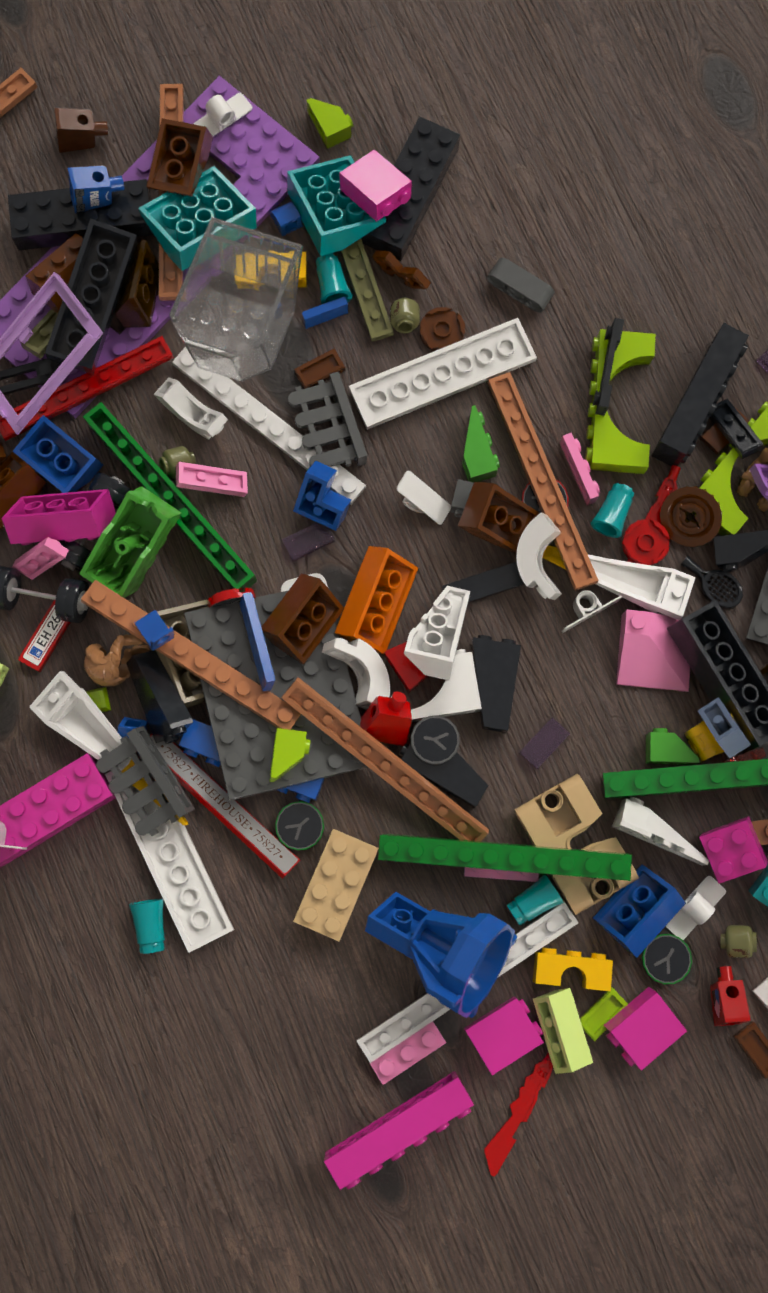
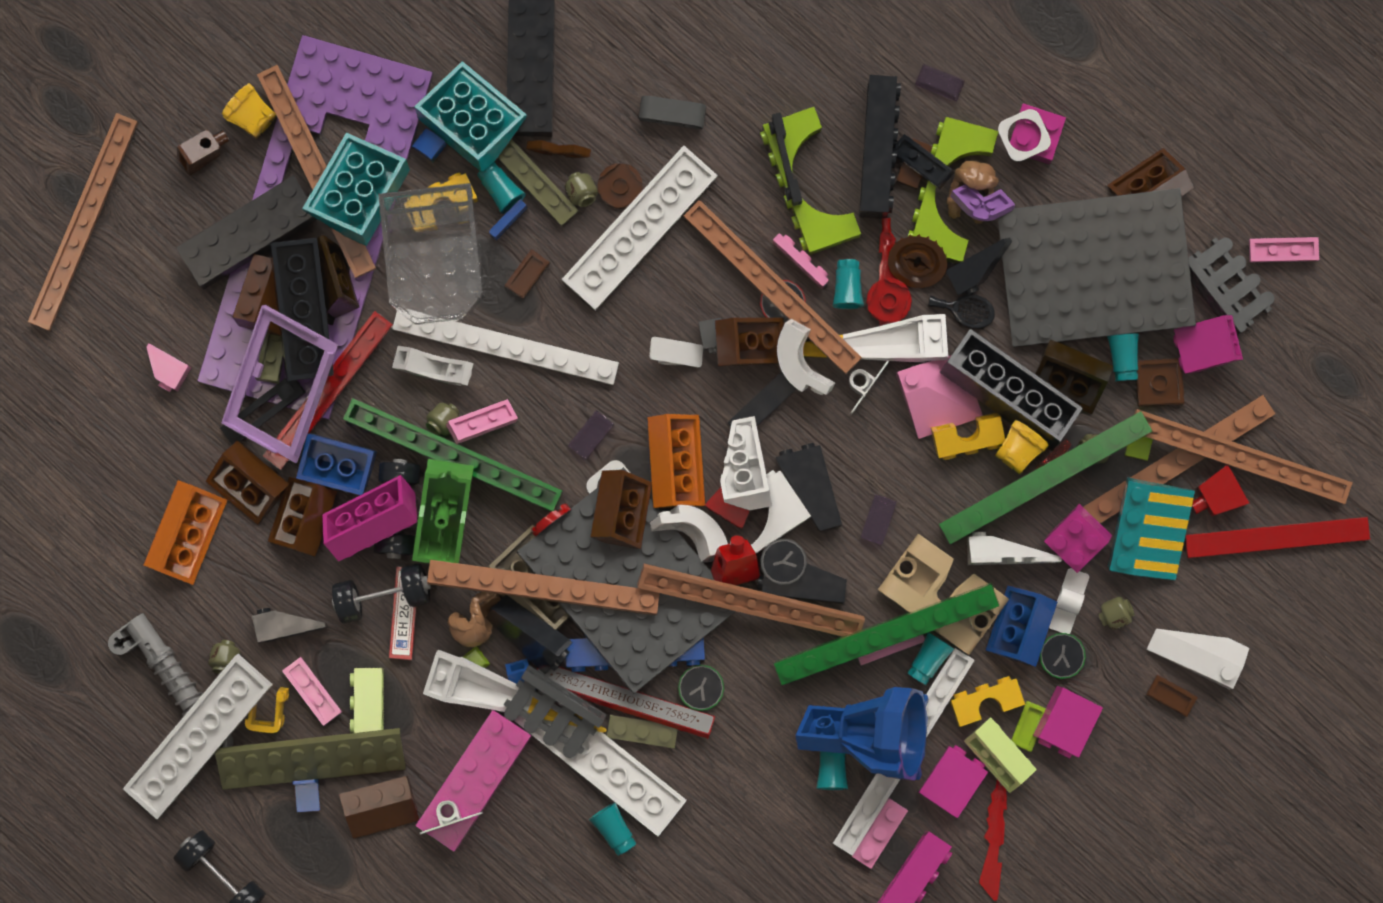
camera: 20 degrees left, 5 degrees up
(40, 558) = (369, 561): bright pink plate -> none
(92, 187) = (250, 217): blue torso -> none
(137, 114) = (249, 111): none -> yellow piece
(154, 630) = (504, 580): blue bracket -> none
(179, 157) = (315, 145): reddish brown slope -> none
(222, 842) = (641, 731): none -> olive plate
(224, 113) = (325, 76): white piece -> none
(257, 641) = (593, 548): tile -> none
(287, 751) = (664, 628): lime slope -> none
(318, 501) = (587, 397): blue brick -> none
(329, 412) = (568, 331): dark grey fence -> none
(330, 122) = (426, 34): lime slope -> none
(336, 885) = (756, 722): tan brick -> none
(375, 185) = (503, 88): brick -> none
(388, 969) = (832, 772): none -> teal plant
(477, 457) = (704, 289): bright green slope -> none
(645, 700) = (987, 434): none -> yellow arch
(668, 749) = (986, 476): bright green slope -> none
(724, 727) = (1023, 440): sand blue slope -> none
(727, 1009) = (1131, 674): red torso -> none

